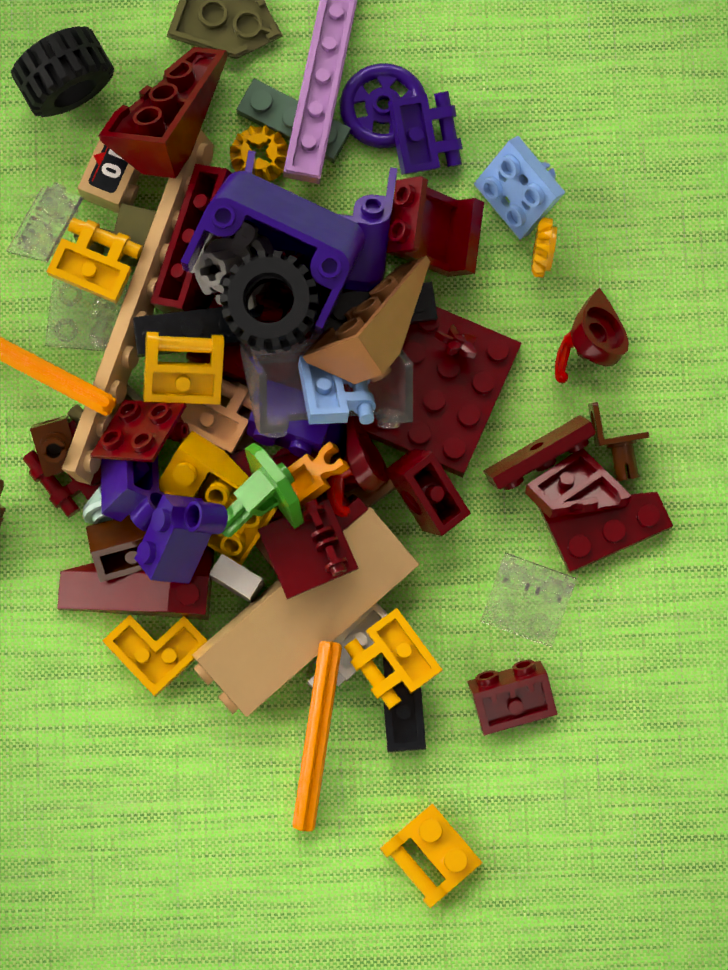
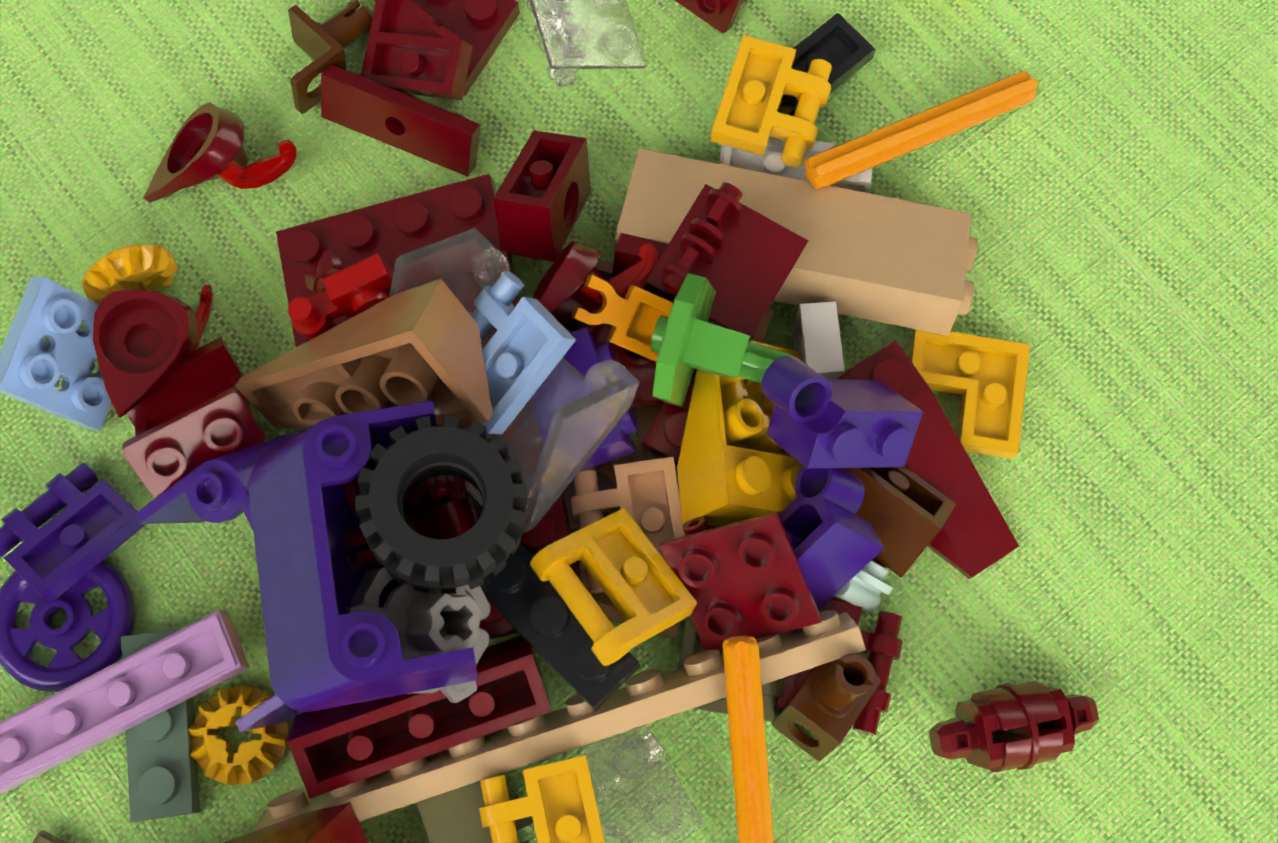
camera: 130 degrees left, 5 degrees down
(421, 343) = (345, 296): none -> red plate
(495, 231) = (143, 340): none -> dark red piece

